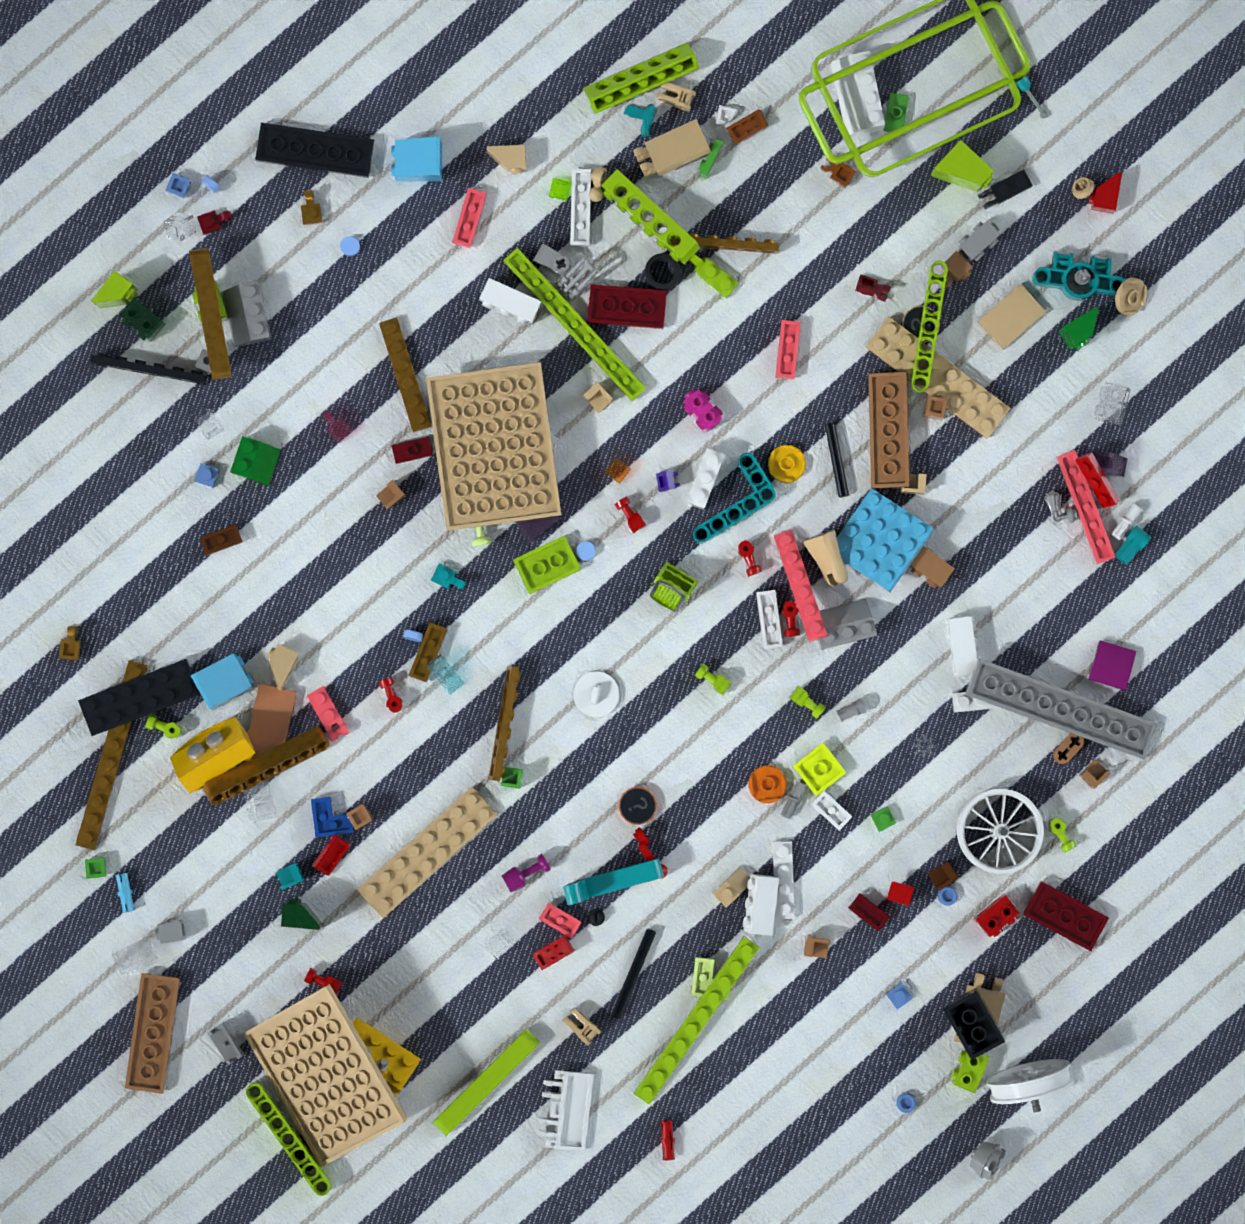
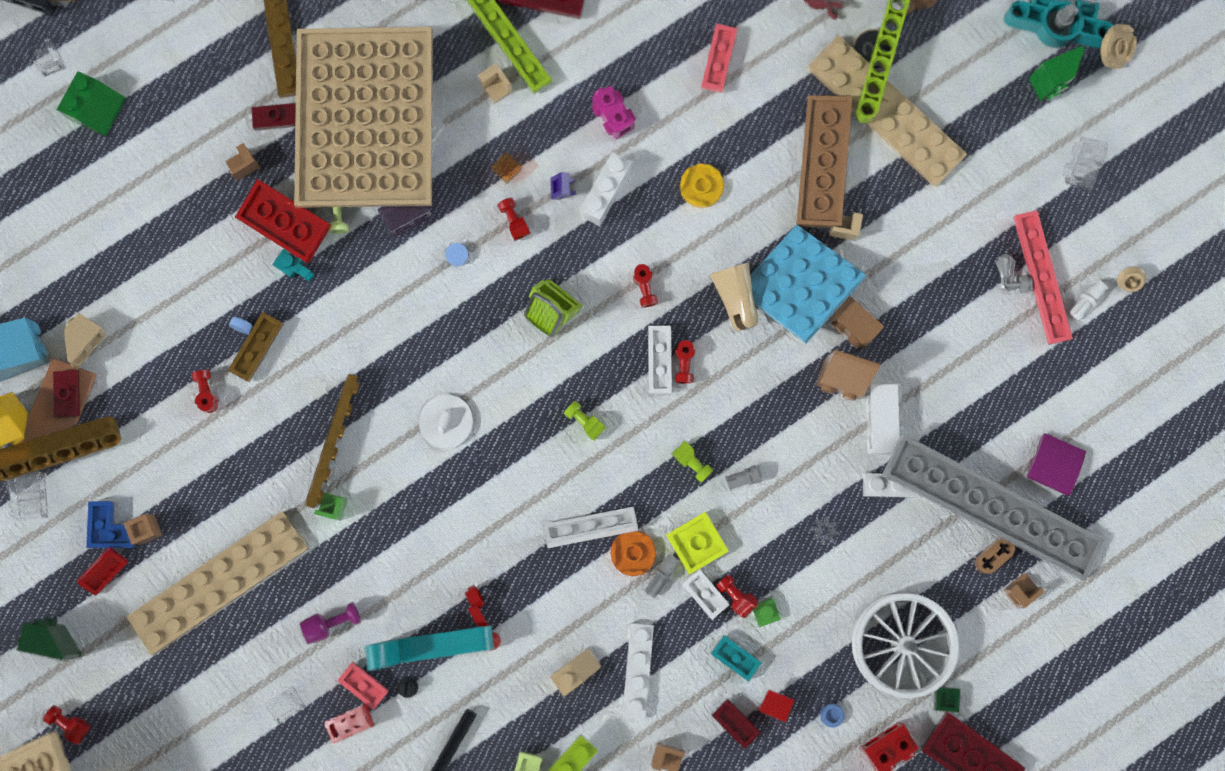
camera: 10 degrees right, 5 degrees down
(206, 475) = (35, 115): medium blue plate -> none
(221, 539) = (37, 188): reddish brown plate -> none
(277, 712) = (66, 393): none -> dark red plate
(290, 876) = (50, 590): teal panel -> none
(327, 713) = (127, 403): coral plate -> none
(338, 428) = (192, 79): clear pink plate -> none
(434, 543) = (282, 222): none -> red plate
(445, 674) = (271, 374): clear light blue plate -> none
(547, 564) = (409, 264): lime plate -> none
(637, 805) = (475, 559): black tile -> none
(729, 767) = (590, 527): none -> white plate
(740, 505) = (641, 224): teal beam -> none
(761, 904) = (606, 698): white brick -> none
(800, 586) = (701, 325): coral plate -> none
(836, 459) = (760, 189): black axle -> none
(847, 624) = (746, 377): light grey slope -> none
(862, 859) = (735, 658): none -> teal plate
(863, 814) = (742, 603): none -> red leg
(926, 615) = (846, 375): none -> medium nougat slope
(935, 408) = (880, 142): medium nougat panel -> none
(942, 875) = (829, 690): reddish brown panel -> none
(1011, 316) = (977, 54): tan tile -> none
(1039, 870) = (947, 699): none -> dark green plate
(1058, 827) = (975, 649): lime leg -> none
(1097, 480) = (1061, 247): red plate -> none
(1110, 463) = (1069, 229): clear purple slope -> none
(1134, 542) = (1096, 324): teal piece -> none
(1161, 499) = (1131, 279): none -> tan hat

